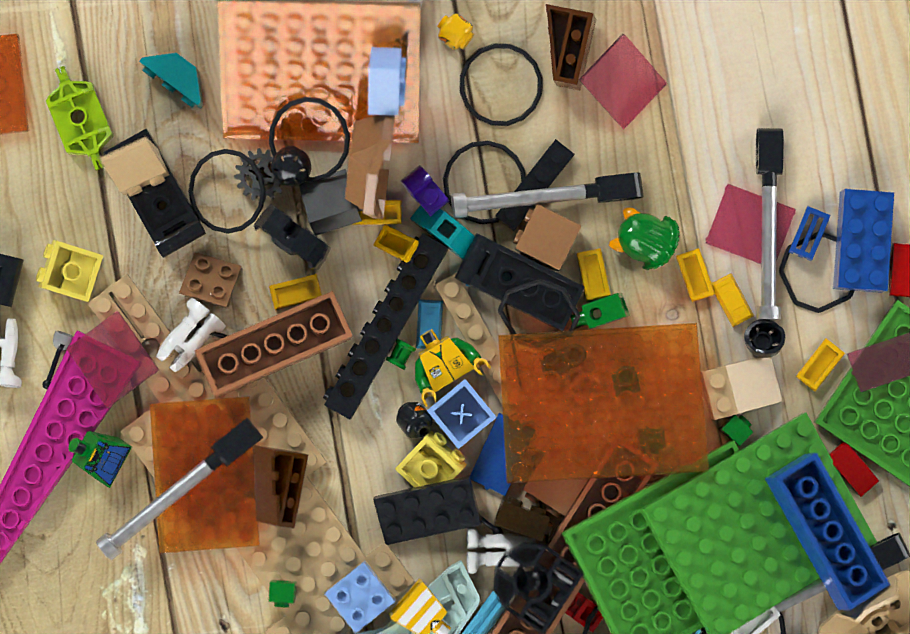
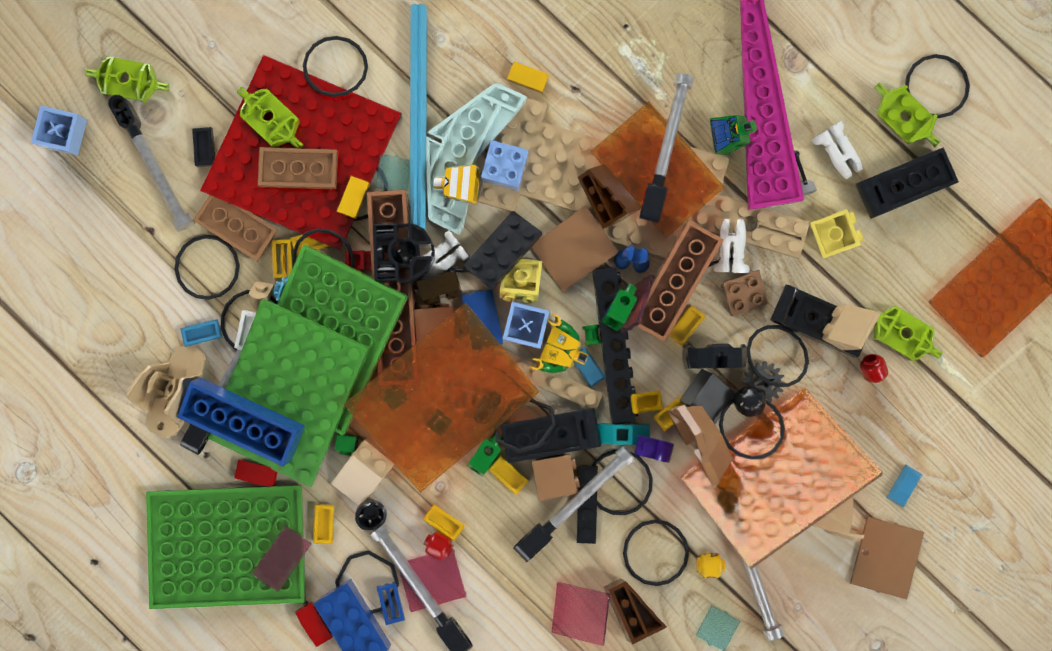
camera: 145 degrees right, 0 degrees up
(112, 359) = (768, 198): clear pink piece -> none
(138, 105) = (874, 368): none -> red head
(177, 75) = (864, 406): teal slope -> none
(282, 593) = (555, 132): green plate -> none
(301, 407) = (638, 257): none -> blue piece
(330, 350) = (642, 294): none -> piece
(351, 457) = (574, 248): none -> medium nougat piece
(360, 356) = (617, 312): none -> green torso
(386, 81) = (733, 500): light blue brick -> none
(414, 419) = (553, 300): black head -> none
(647, 238) = (491, 523): green hair -> none
(718, 255) = (438, 545): none -> red head
(732, 300) = (409, 523): yellow tile -> none

